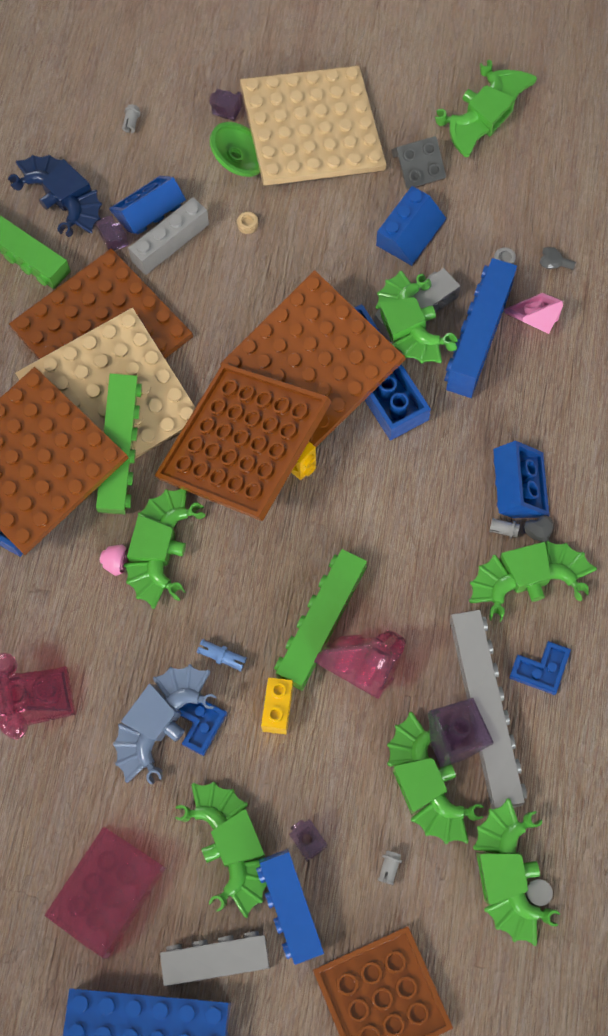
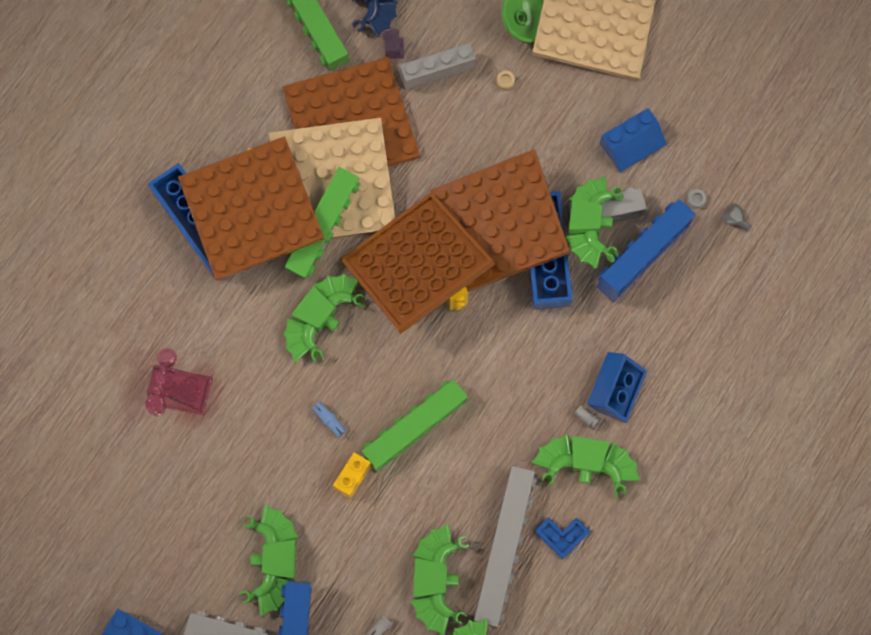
camera: 20 degrees right, 5 degrees up
(105, 893) = (170, 553): clear pink slope -> none
(114, 559) = (281, 311): bright pink cone -> none
(148, 204) = (433, 31): blue slope -> none
(155, 717) = (259, 444): sand blue torso -> none
(204, 727) = (296, 461): blue tile -> none
(307, 850) = (329, 590): clear purple brick -> none
(364, 661) = (430, 472): clear pink piece -> none
(420, 162) = (668, 87): dark grey bracket -> none
(457, 732) = (473, 554): clear purple slope -> none
(487, 108) = (745, 63): bright green torso -> none
(537, 311) = (697, 255): bright pink slope -> none
(540, 529) = (613, 430): dark grey rock -> none

